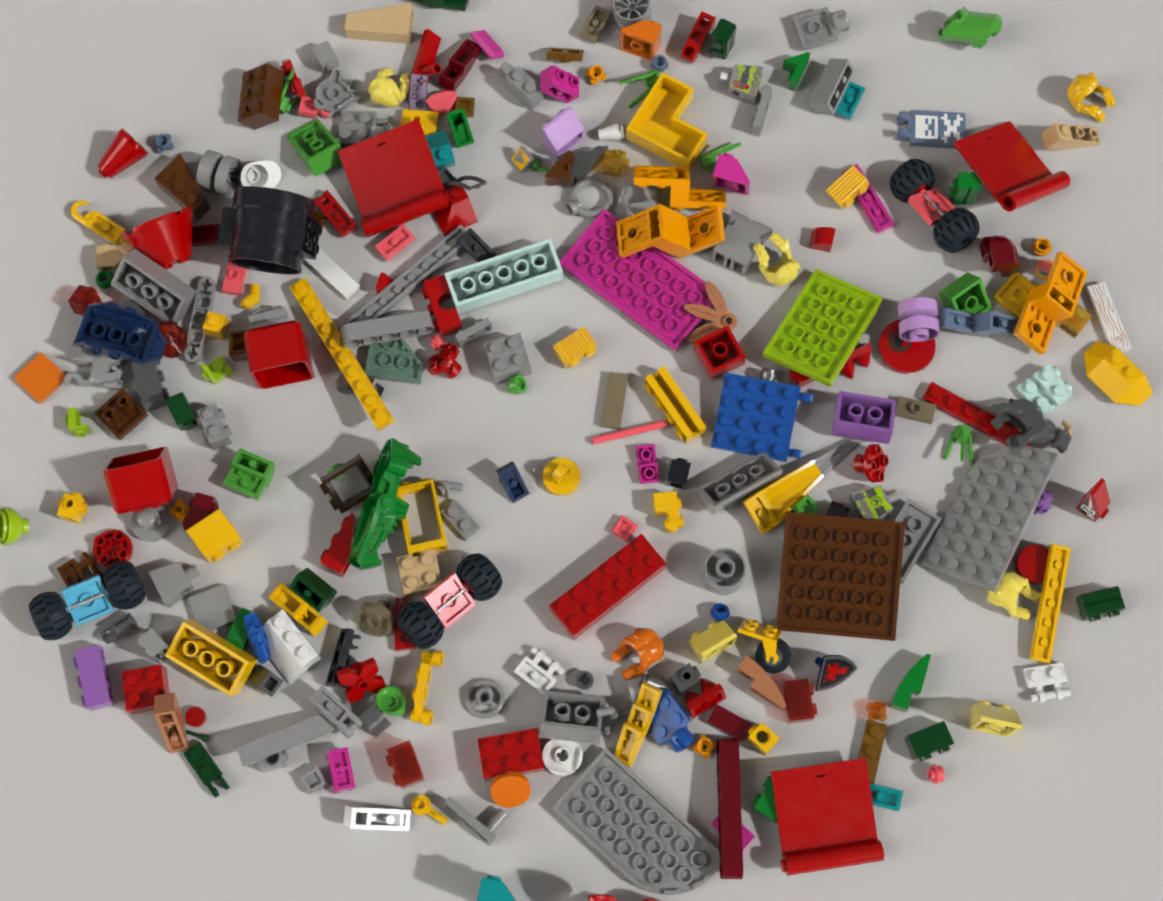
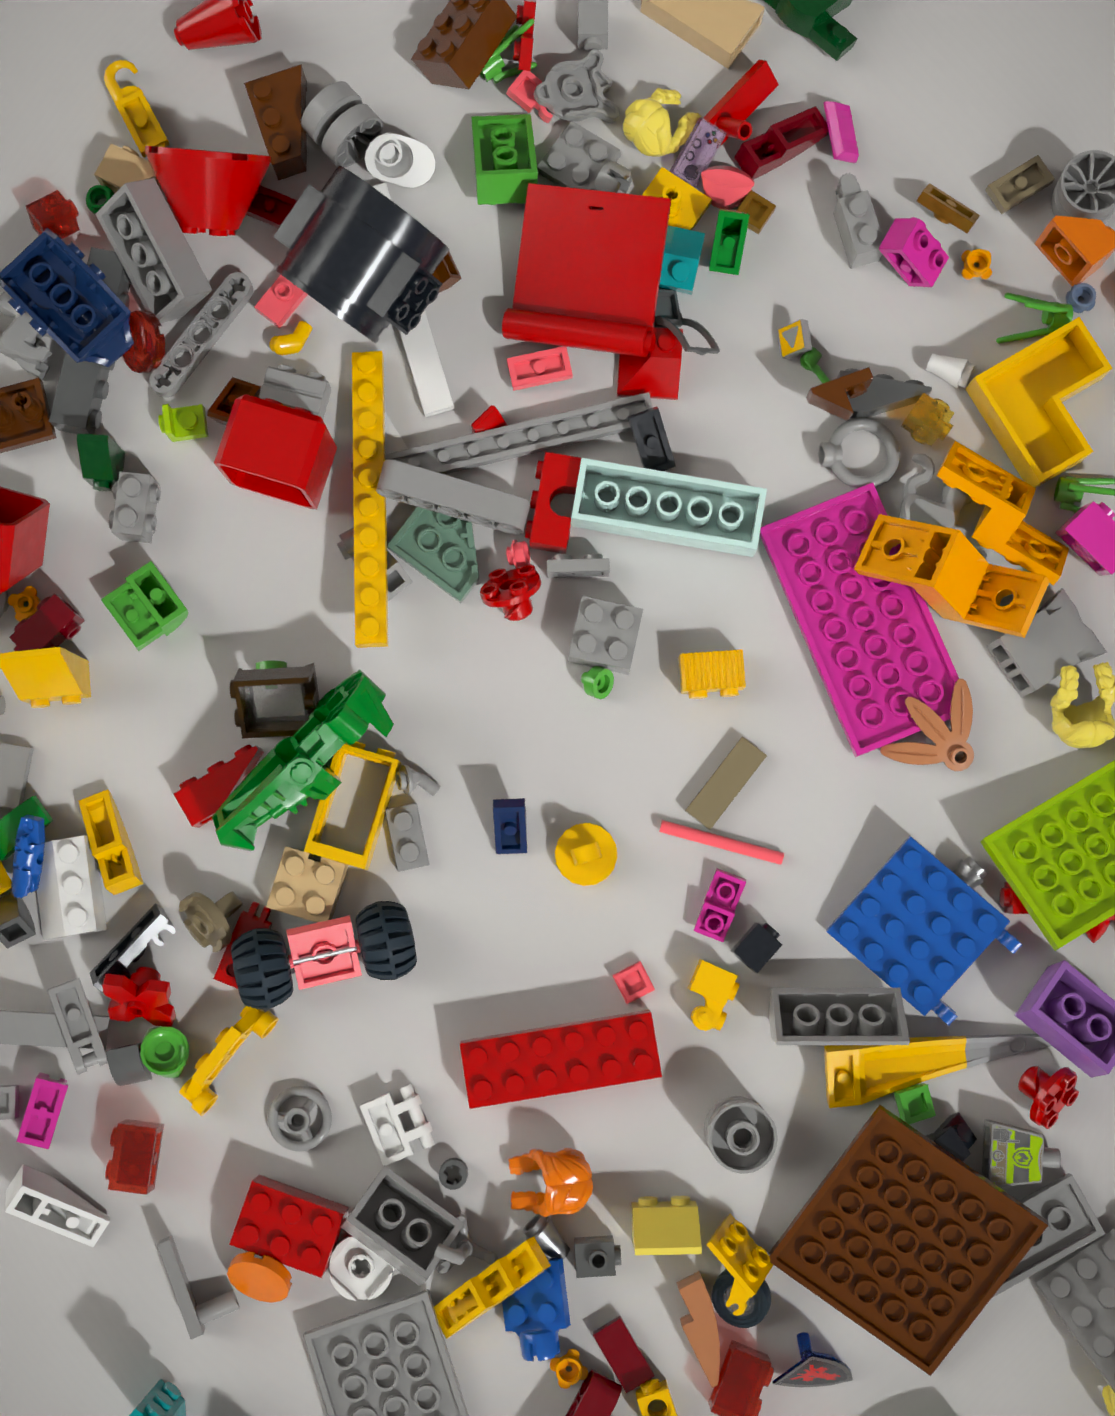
camera: 30 degrees right, 10 degrees up
(163, 138) = (289, 27): sand blue plate -> none
(216, 325) = (217, 356): yellow brick -> none
(312, 589) = (143, 827): dark green brick -> none
(335, 214) = (477, 277): red plate -> none
(422, 806) = (129, 1224): yellow plate -> none
(562, 132) = (876, 330): lavender slope -> none
(675, 405) = (808, 840): yellow brick -> none
(711, 695) = (621, 1300): red tile -> none
(719, 352) = (919, 799): red brick -> none
(720, 612) = (705, 1182): blue plate -> none

